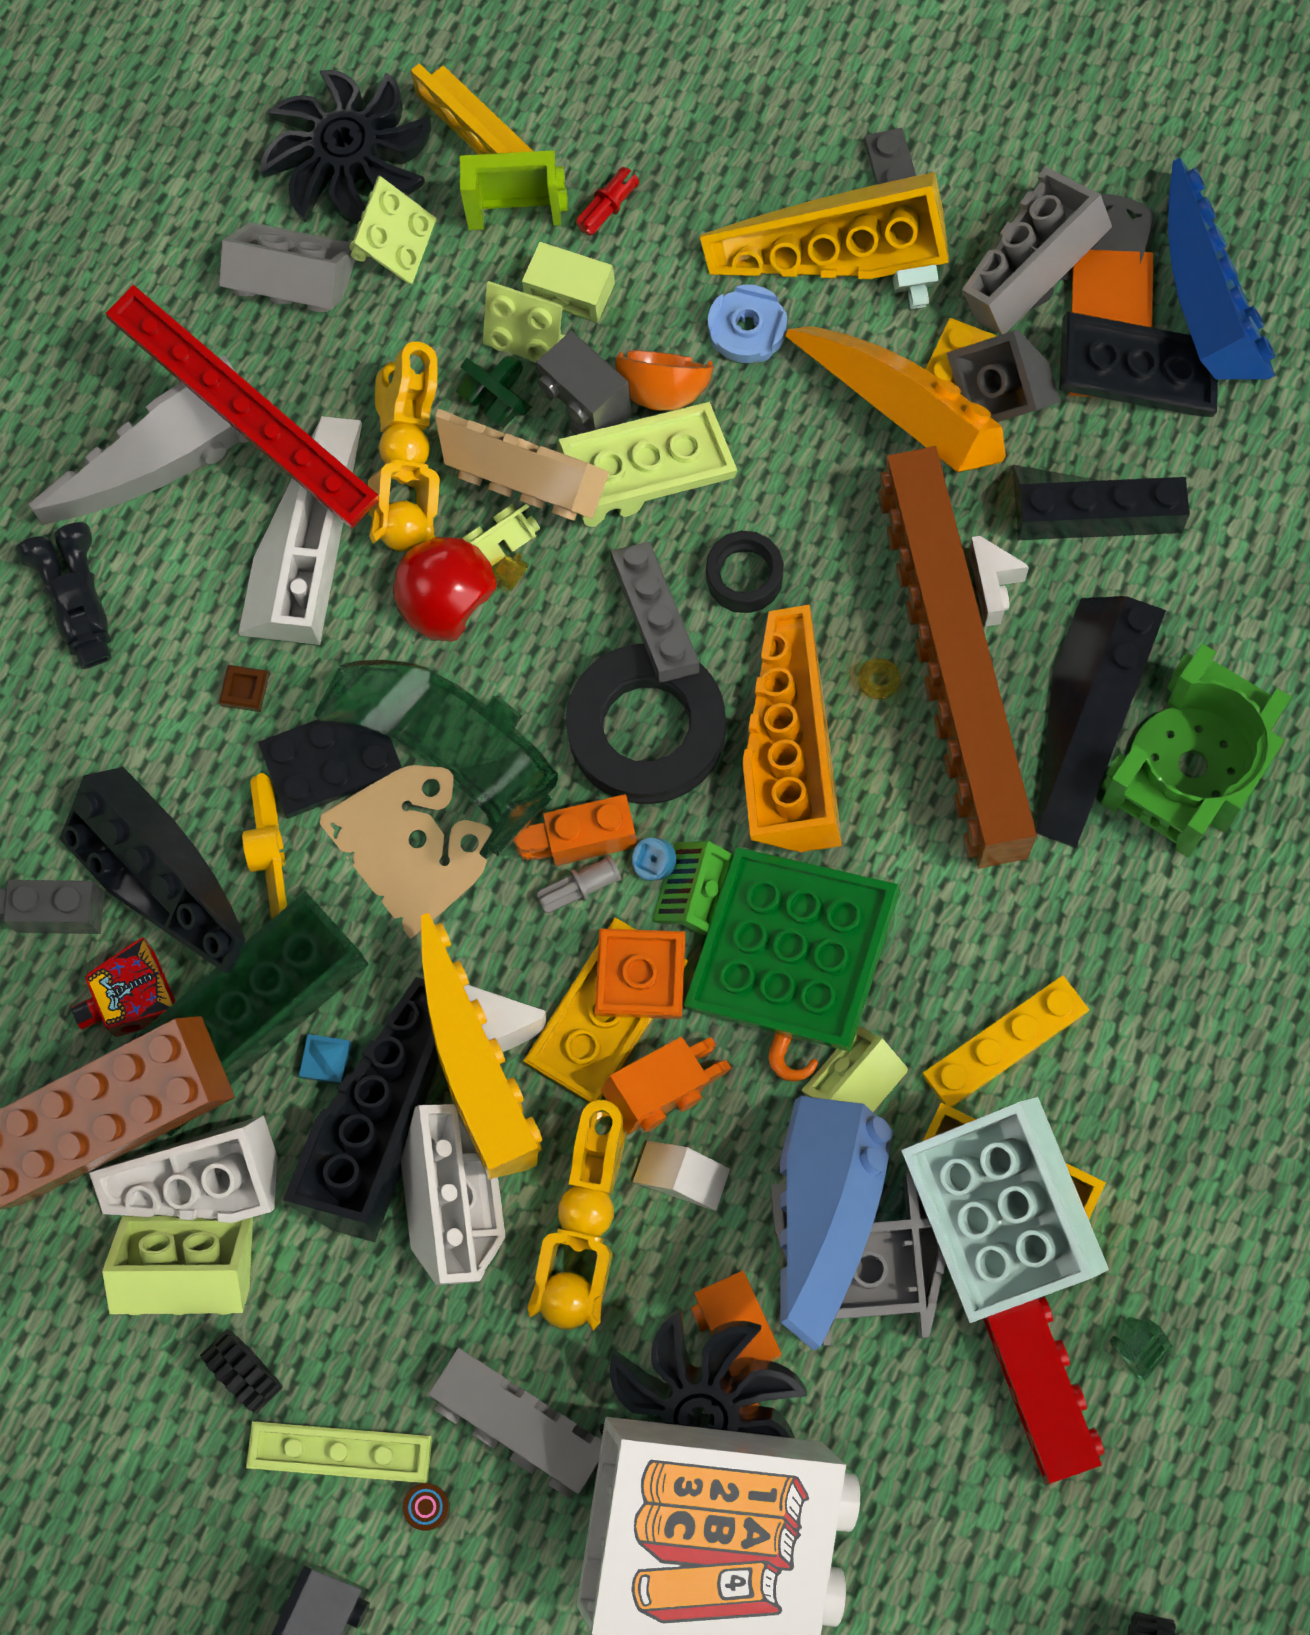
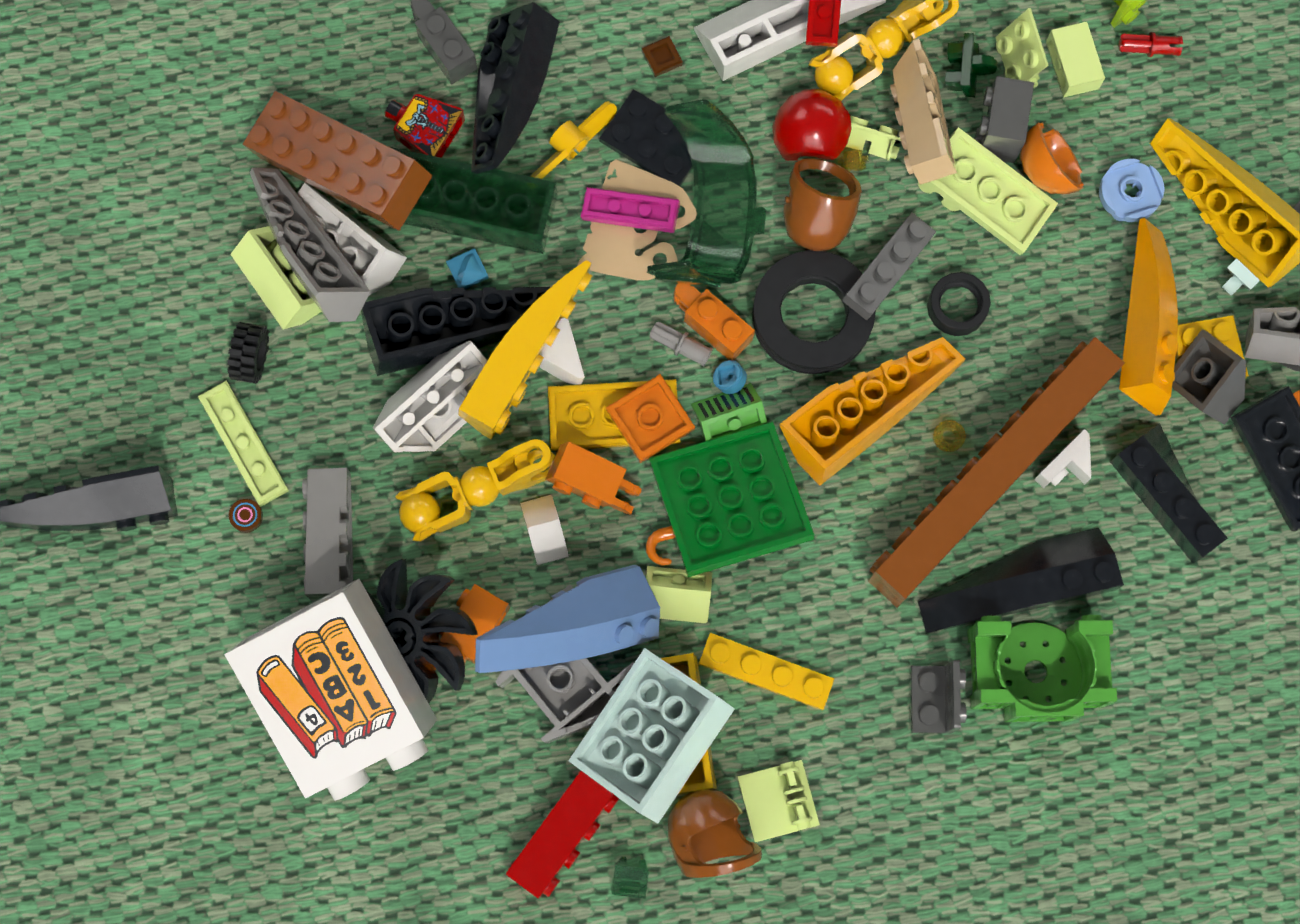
camera: 45 degrees right, 5 degrees up
(175, 1216) = (309, 249): none -> light grey wedge
(391, 836) = (630, 210): none -> dark pink tile
(548, 648) = (816, 218): none -> dark orange piece
(1142, 1222) = (705, 829): none -> dark orange piece
(1158, 1127) = (778, 801): none -> yellowish green hinge
(1159, 879) = (937, 699): none -> dark grey bracket

